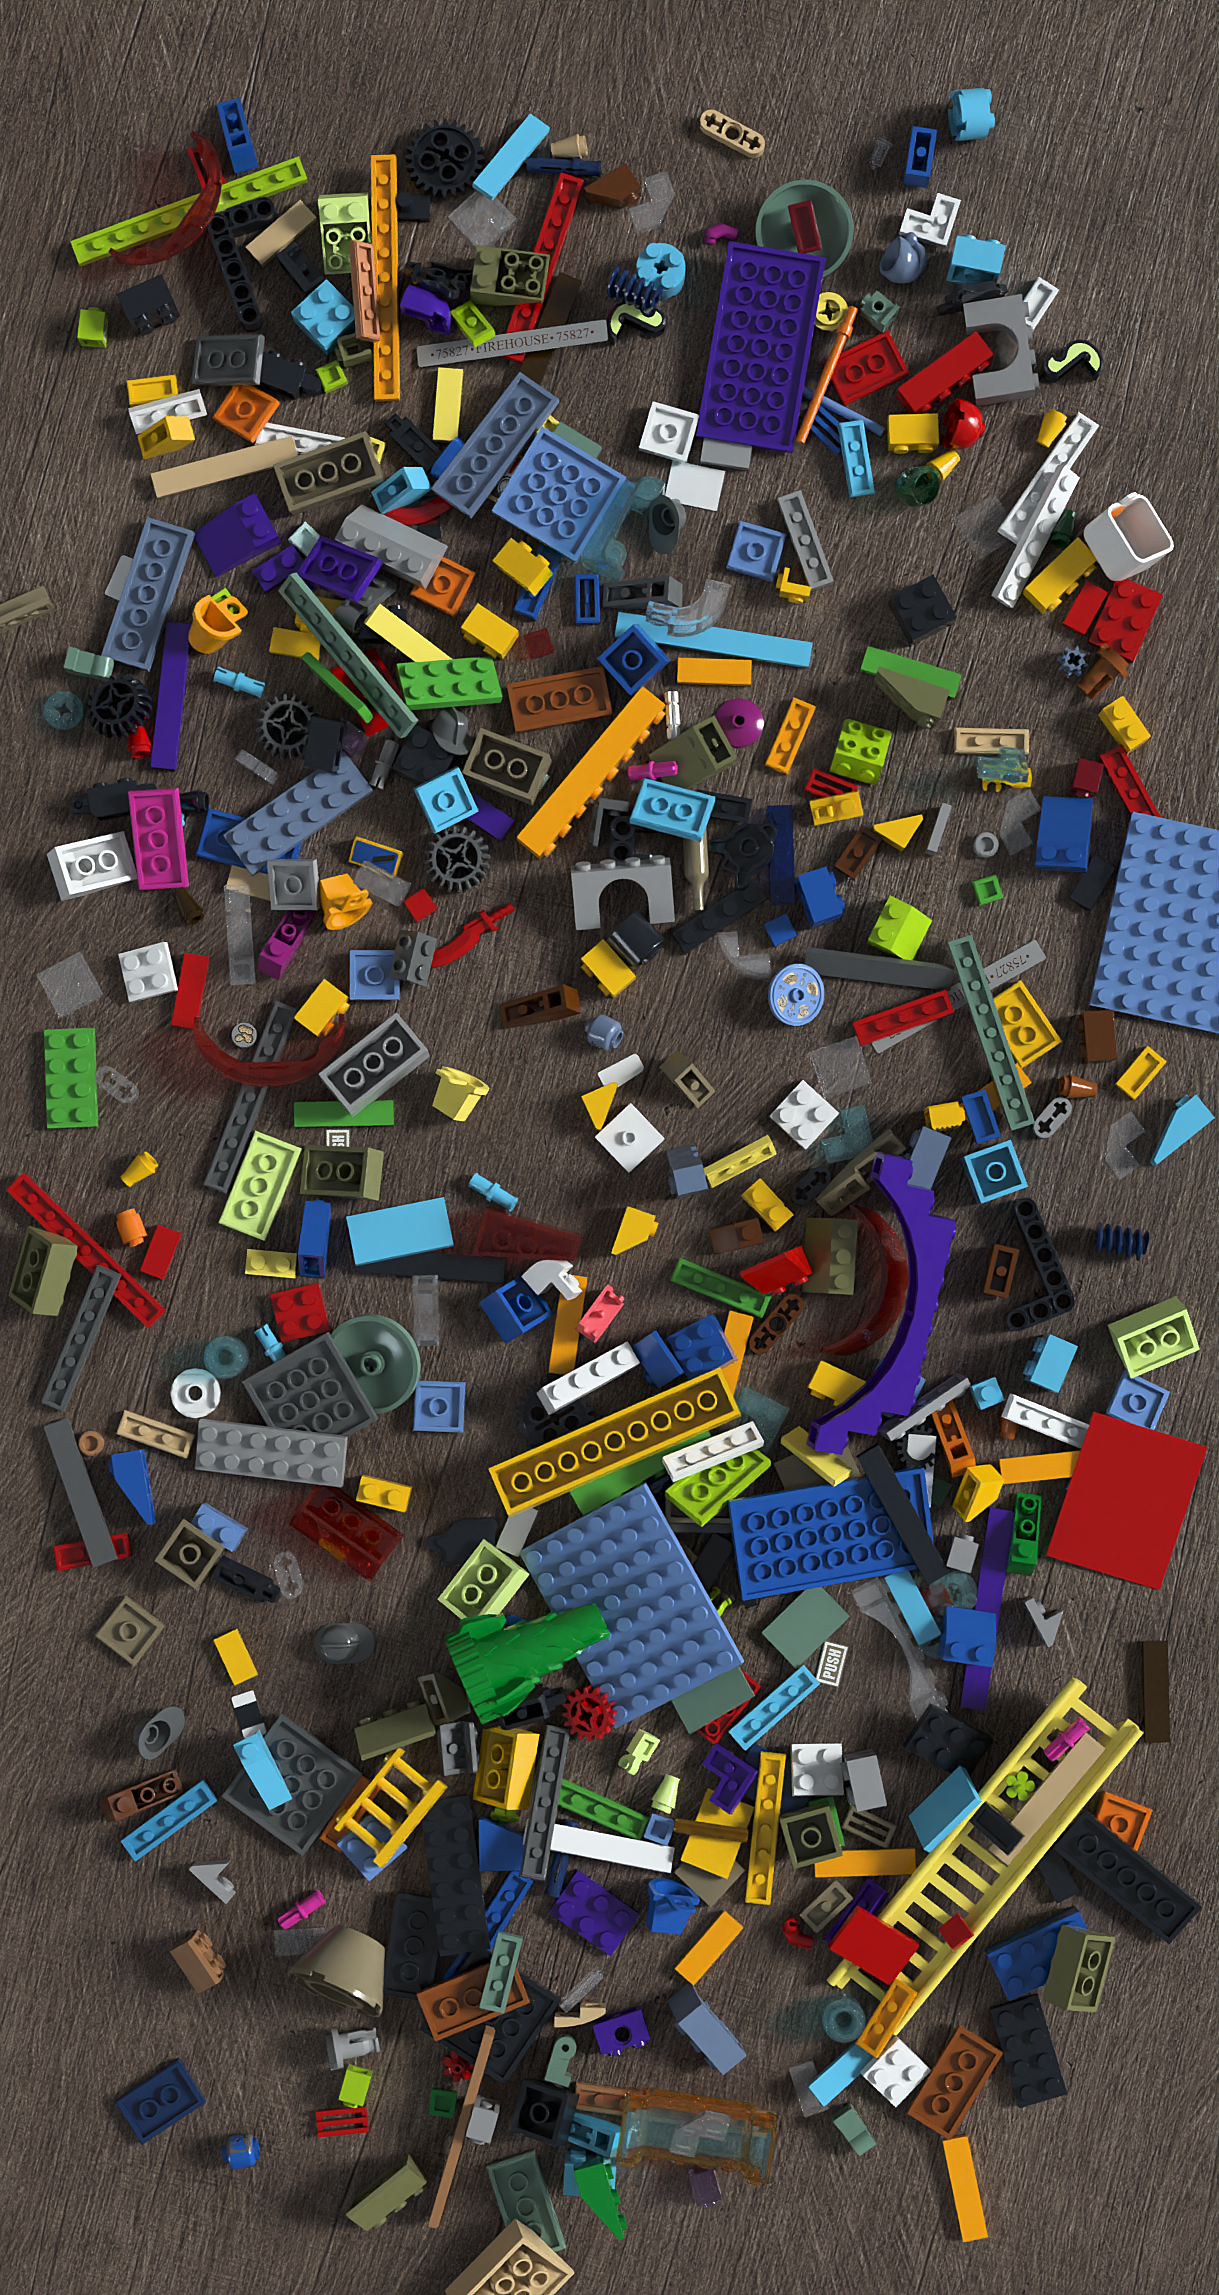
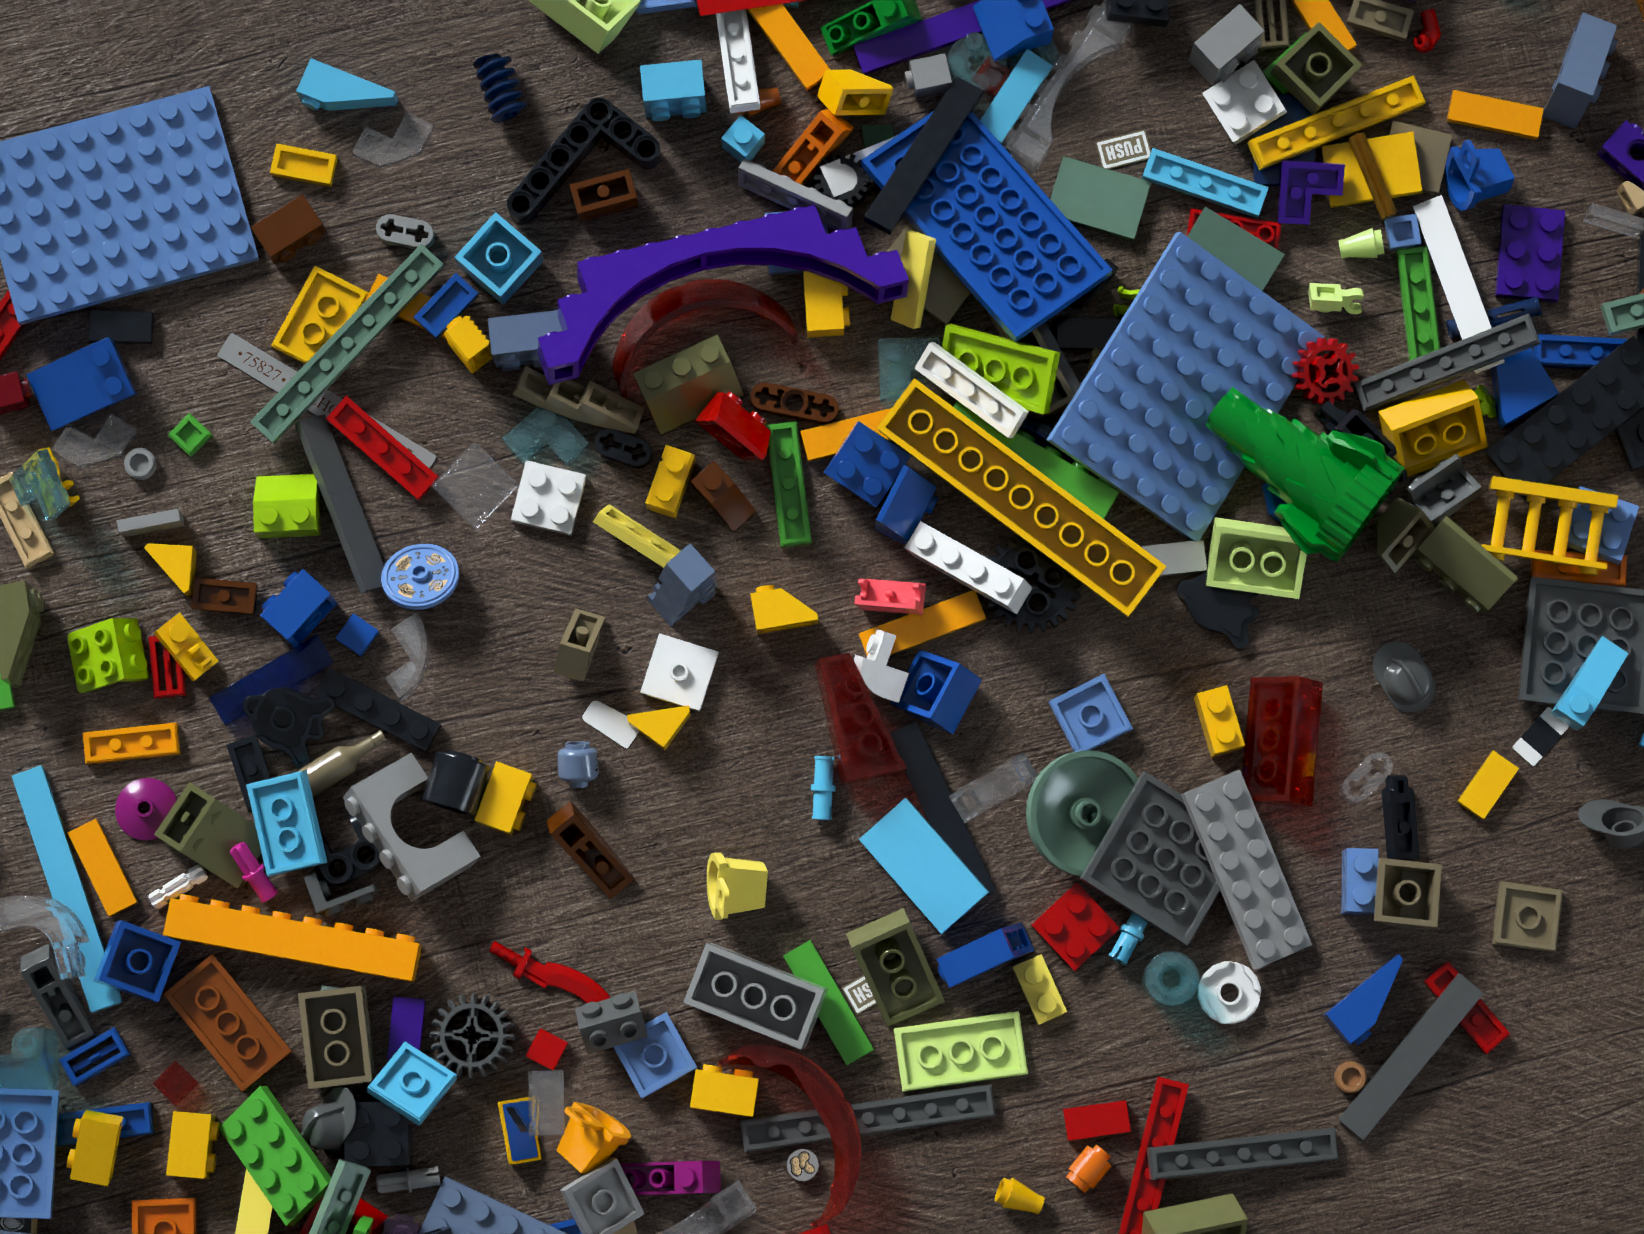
camera: 120 degrees left, 5 degrees down
(156, 1434) = (1299, 1011): tan tile -> none
(1076, 1087) = (357, 223): dark orange cone -> none

